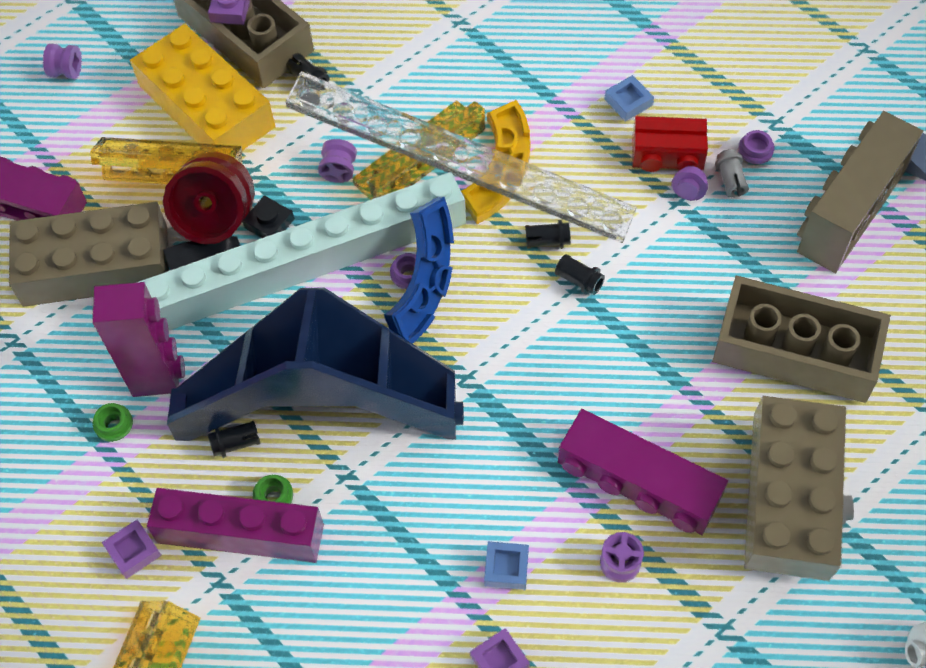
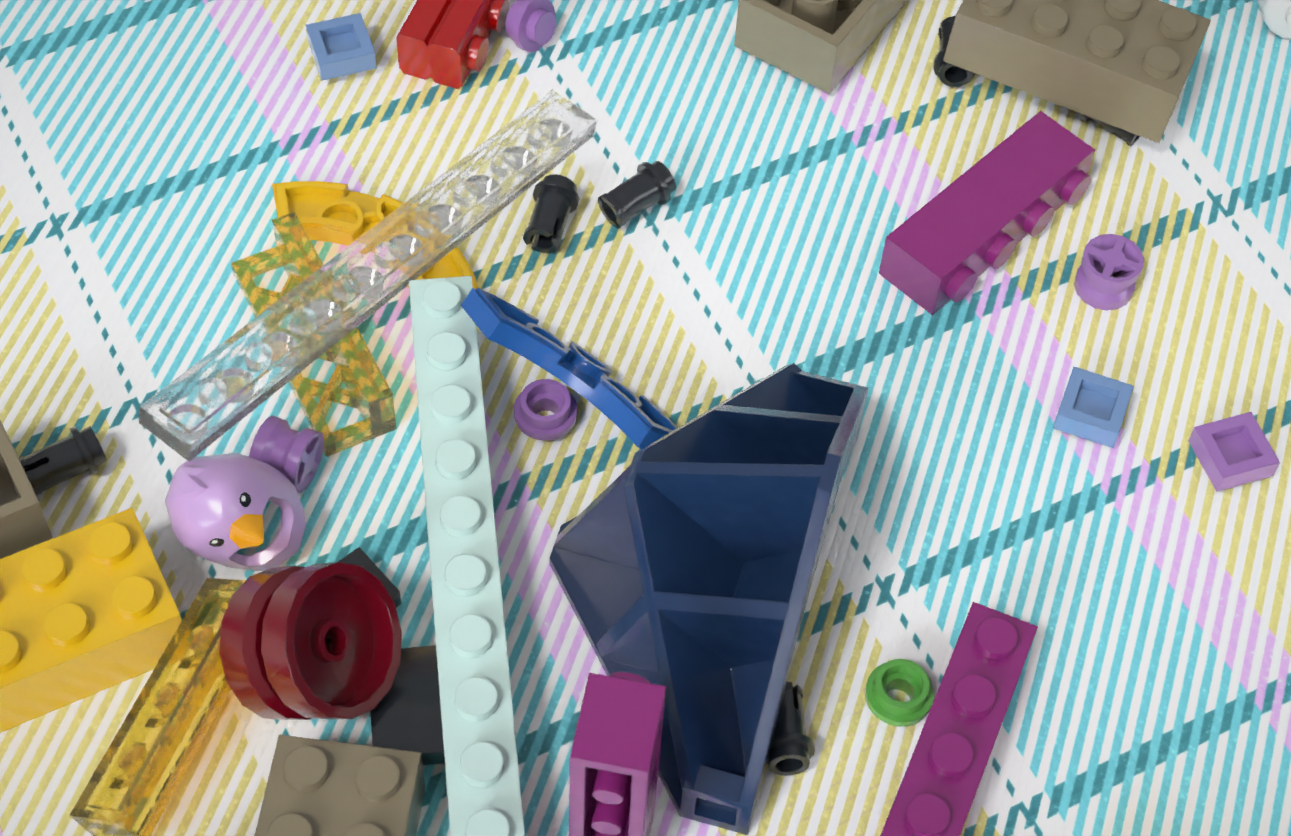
camera: 80 degrees left, 5 degrees down
(282, 134) = (220, 507): none -> lavender piece

